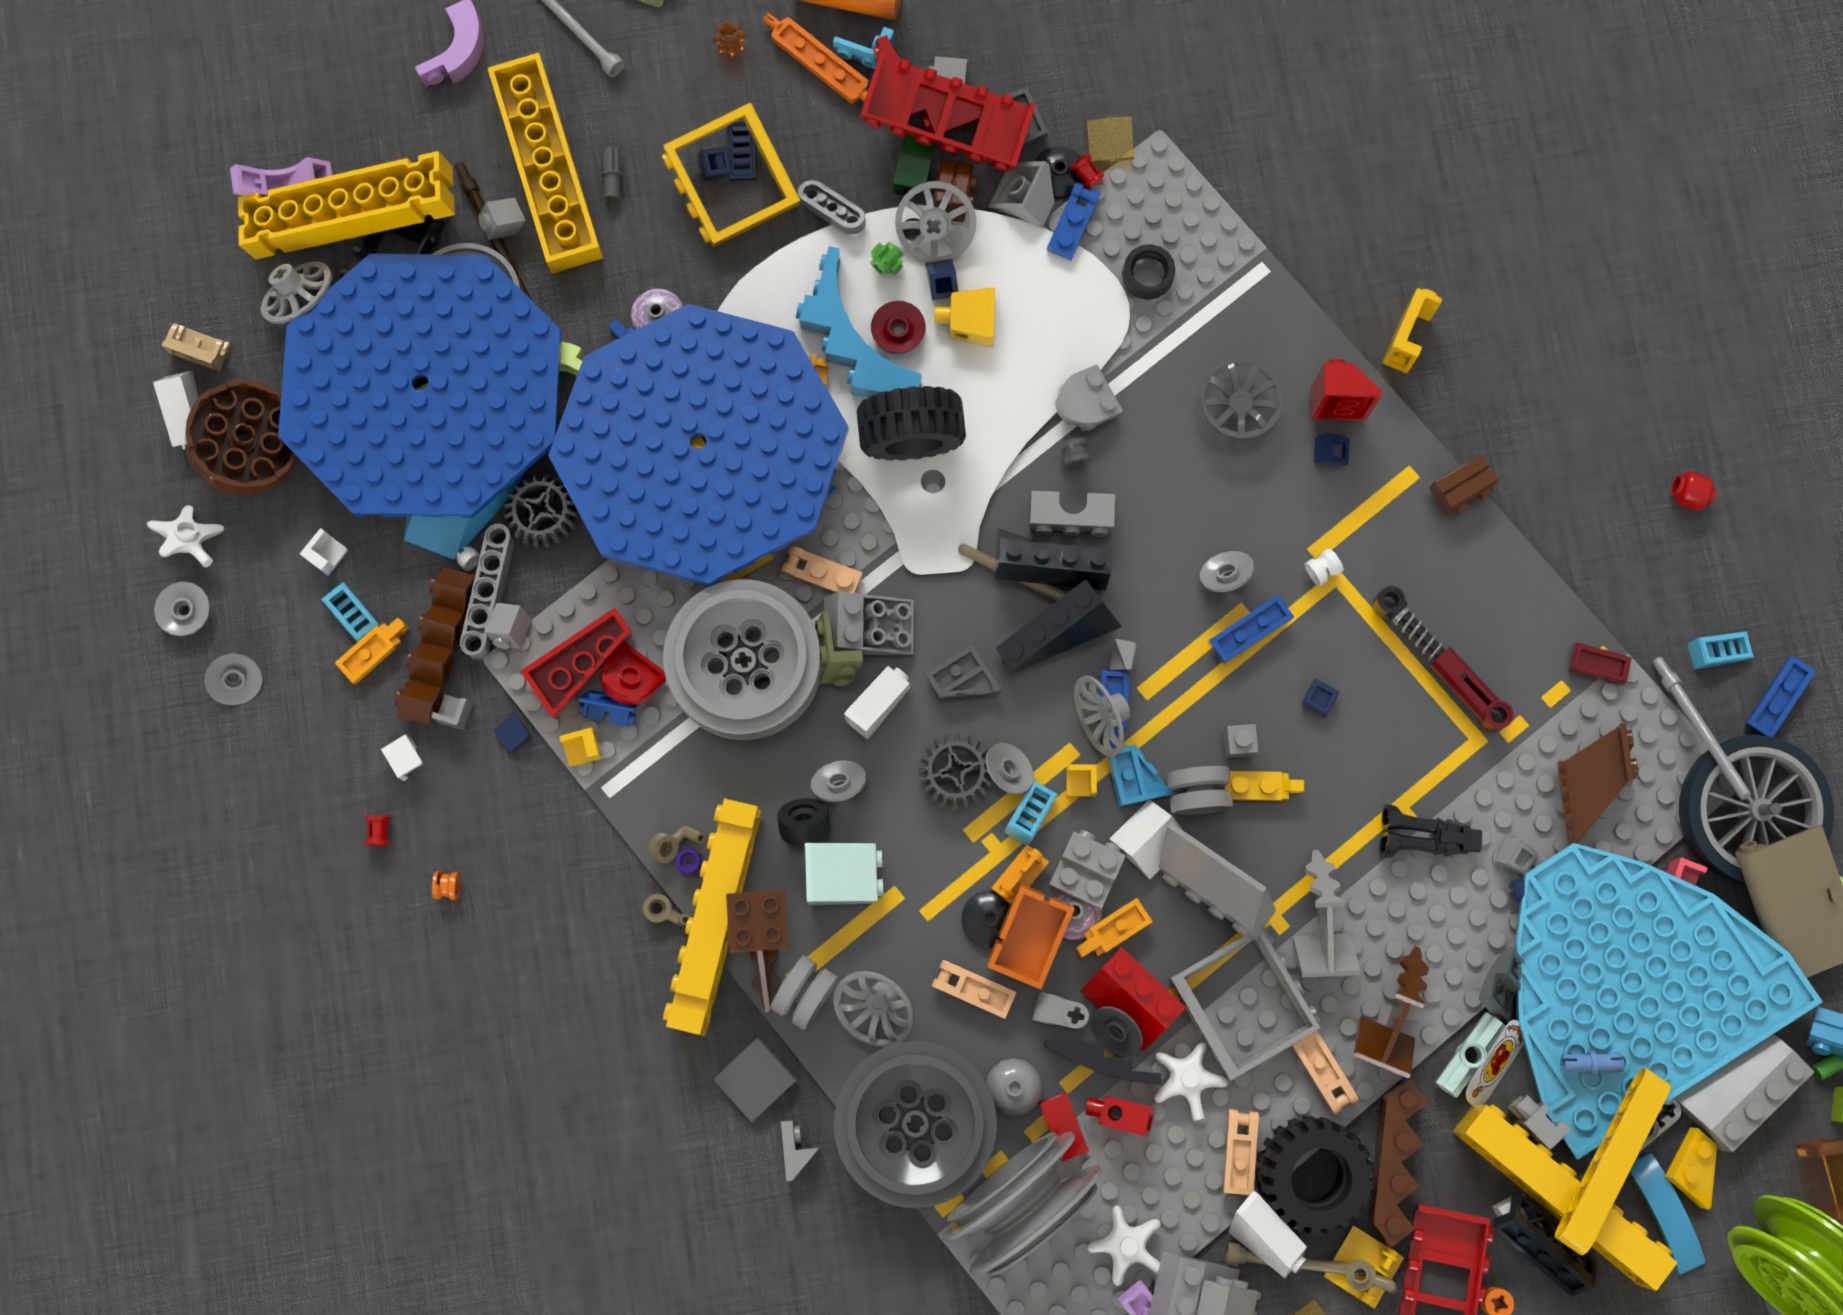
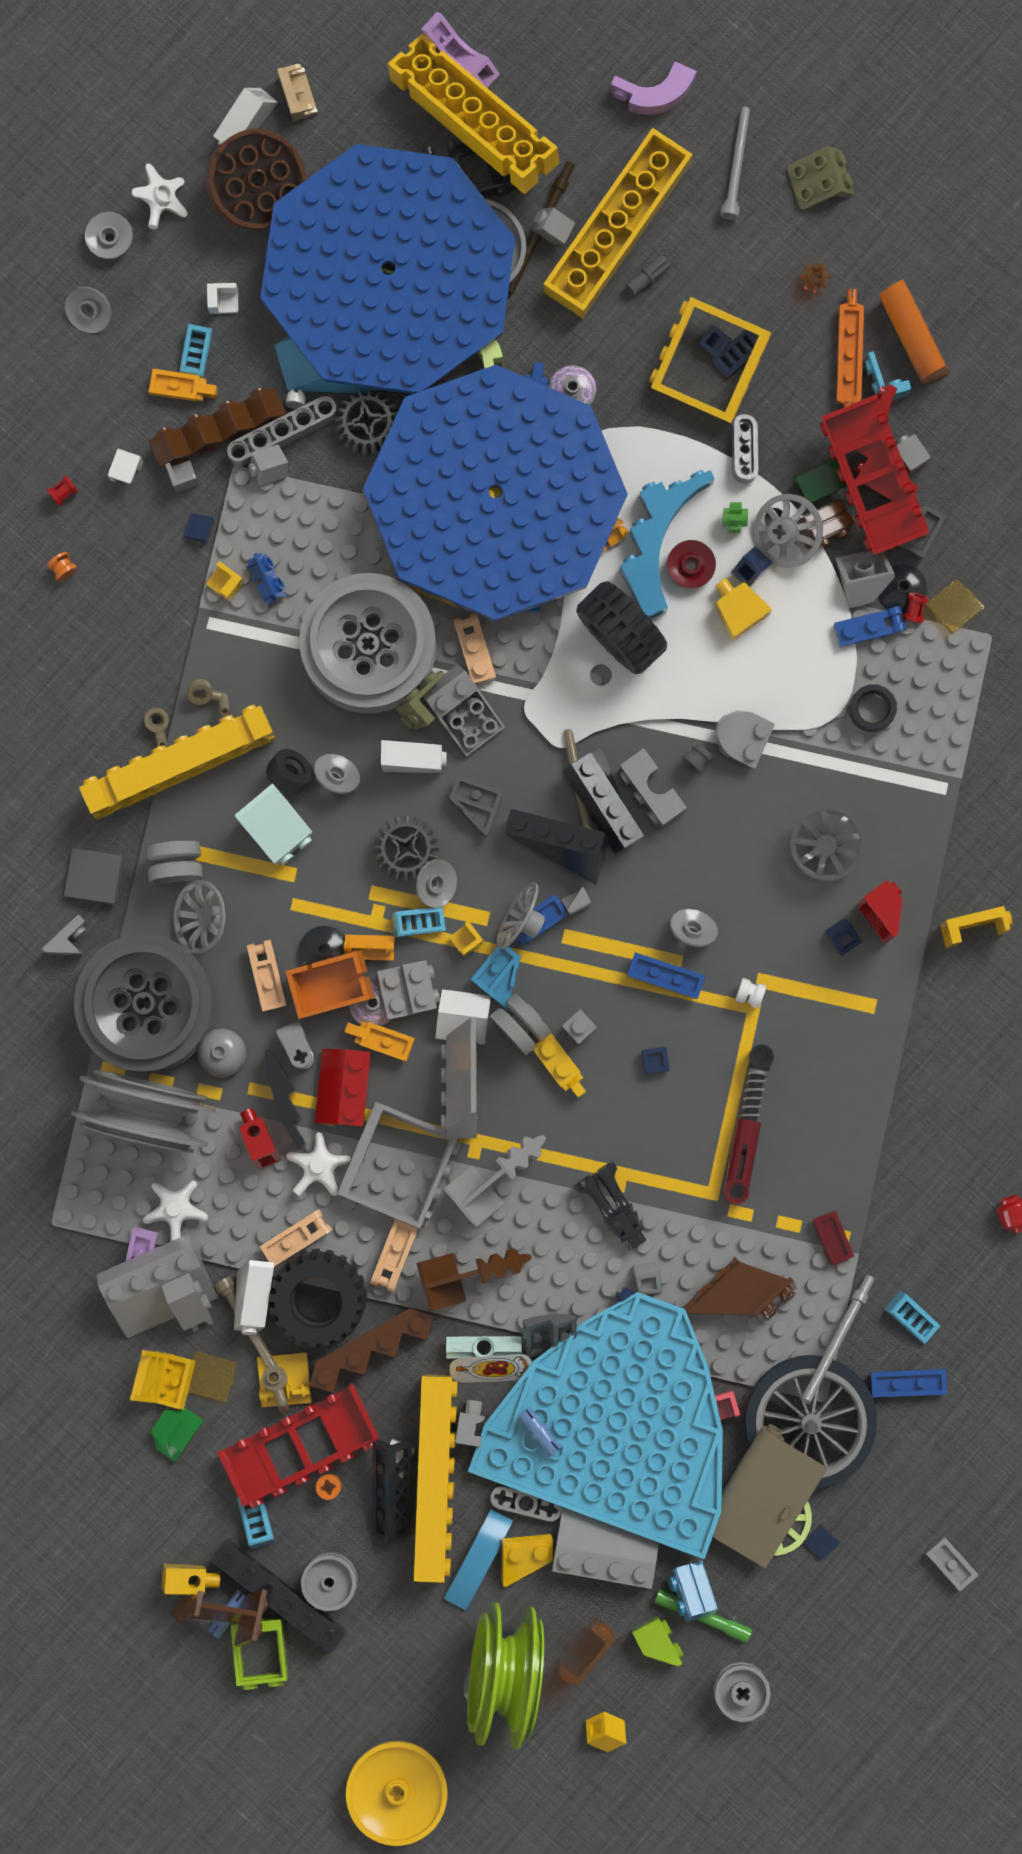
camera: 50 degrees right, 5 degrees up
(287, 284) = (387, 118): light grey wheel -> none
(573, 664) = (275, 530): red wedge -> none
(631, 676) = (298, 576): red tile -> none
(681, 861) = (204, 710): dark purple plate -> none
(760, 926) = (194, 795): reddish brown piece -> none
(1062, 1119) = (225, 1101): red slope -> none
(1116, 1031) = (311, 1092): dark grey dish -> none
(1464, 484) = (889, 1048): reddish brown brick -> none
(1612, 1161) = (479, 1489): yellow beam -> none

